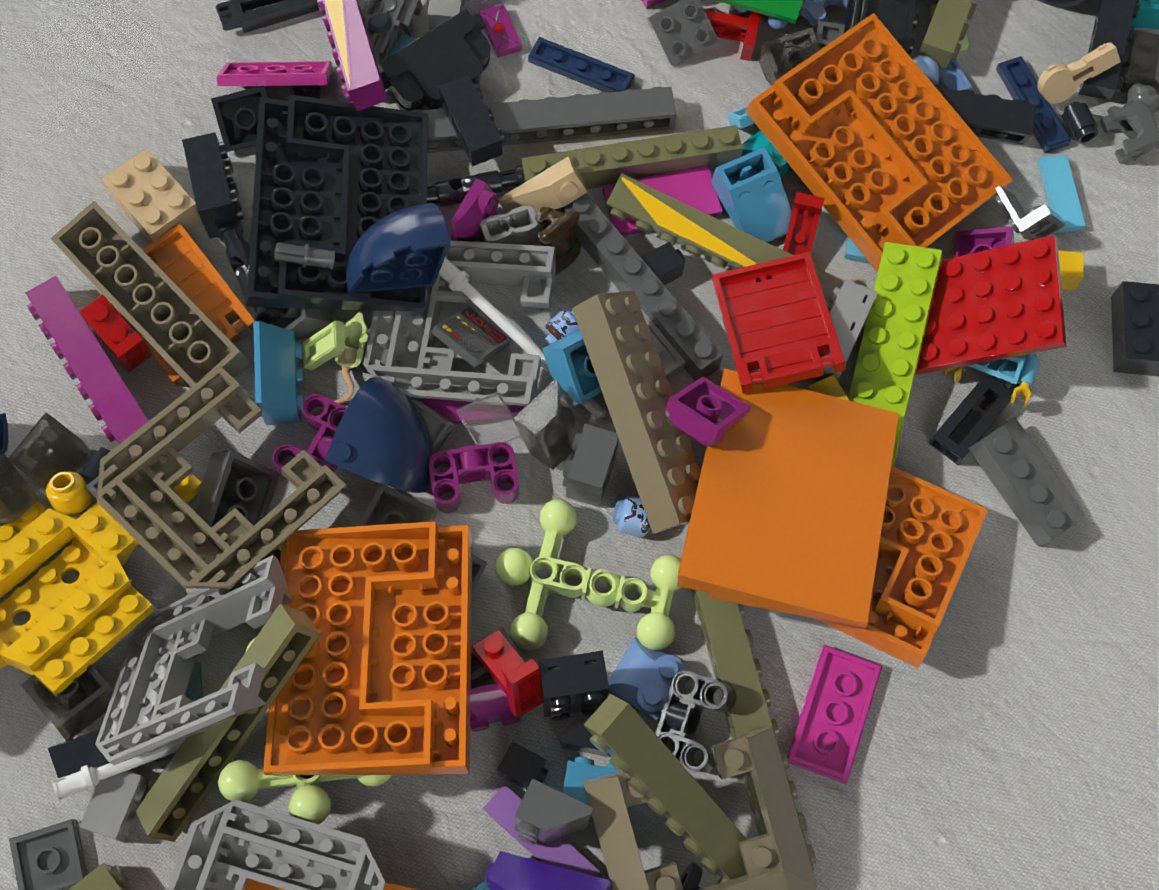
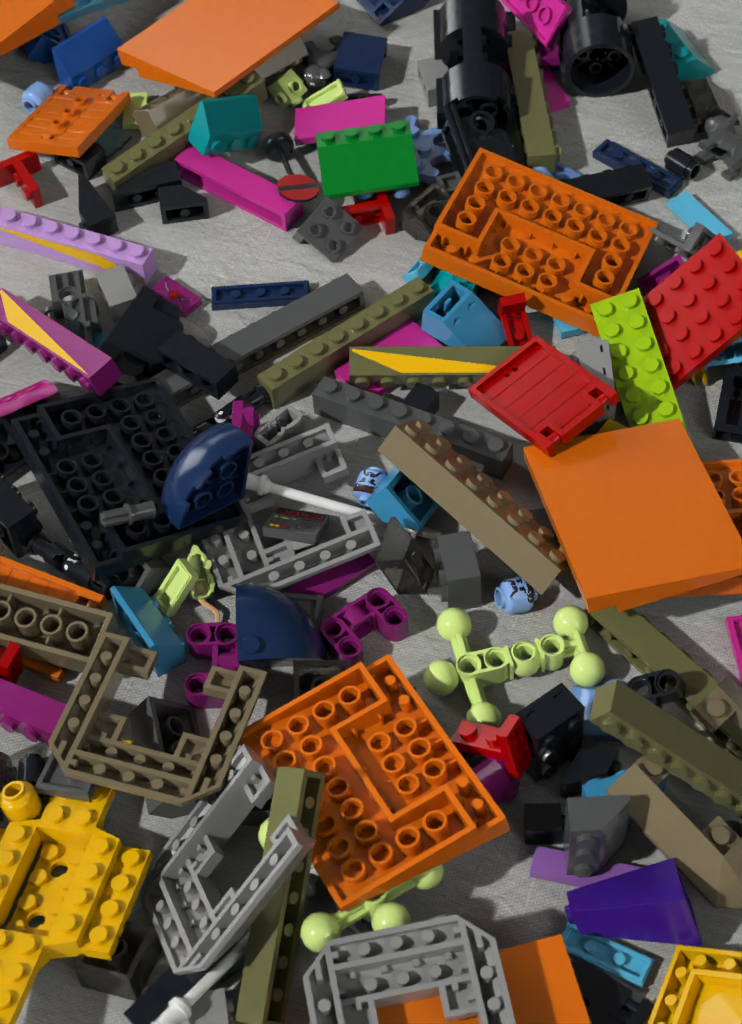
camera: 20 degrees left, 15 degrees down
(488, 420) = (352, 576): clear piece -> none
(550, 188) = (295, 386): tan slope -> none
(559, 233) = (323, 411): dark brown hair -> none
(705, 411) = (530, 479): magenta slope -> none
(1060, 81) = (650, 140): tan piece -> none

